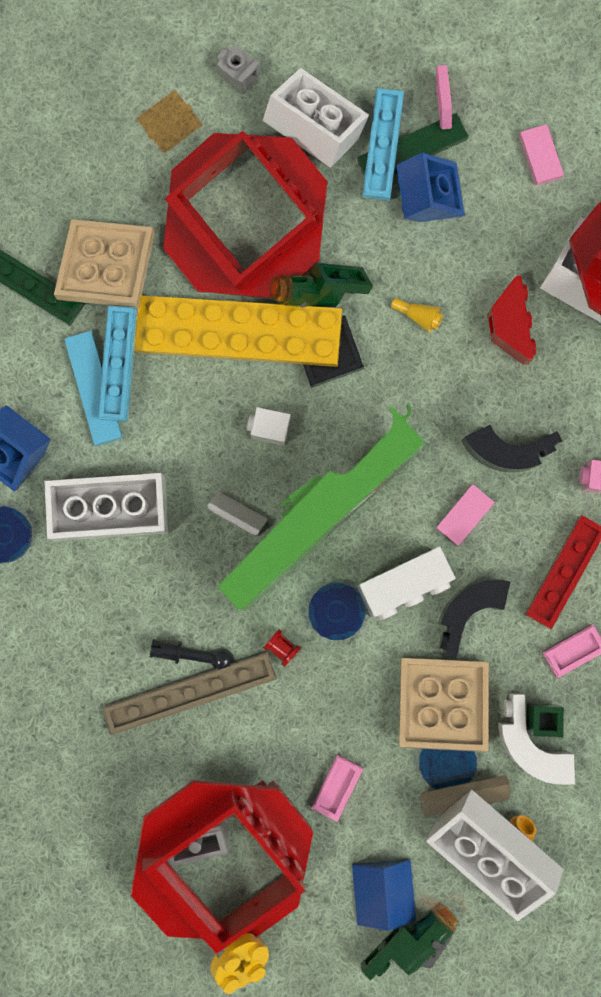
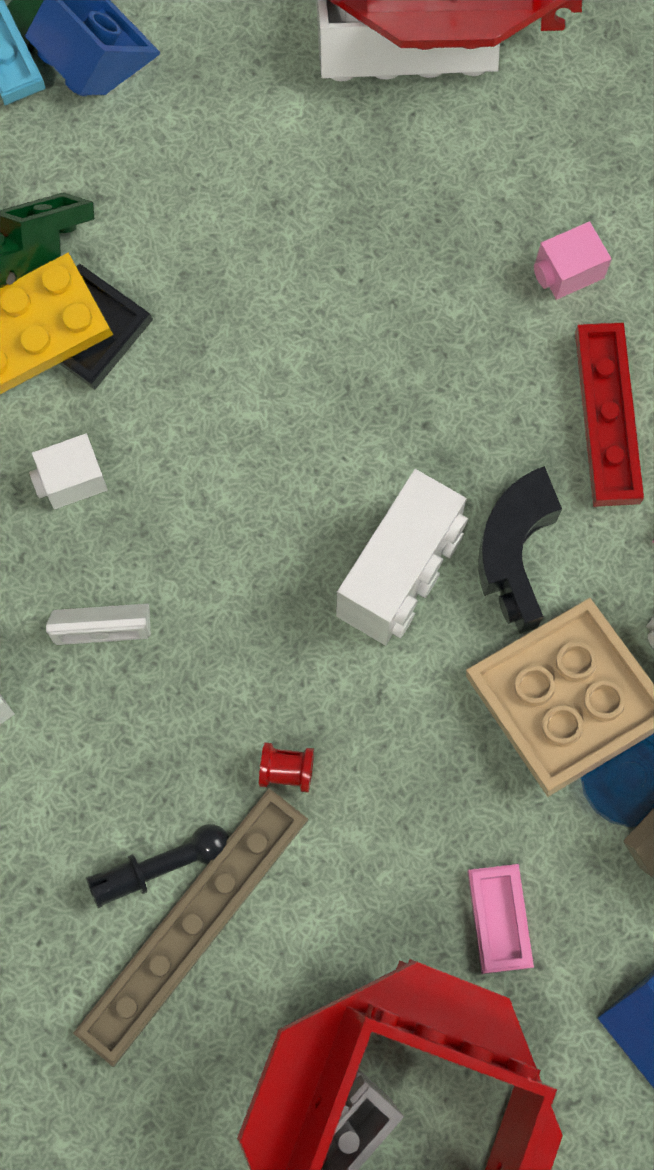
camera: 35 degrees left, 10 degrees down
(318, 511) = (215, 521): bright green piece -> none
(336, 611) = (331, 667): clear blue tile -> none
(424, 315) = (189, 203): yellow cone -> none
(465, 515) = (421, 426): bright pink tile -> none
(504, 457) = (424, 314): black arch -> none
(511, 322) = (315, 143): red slope -> none

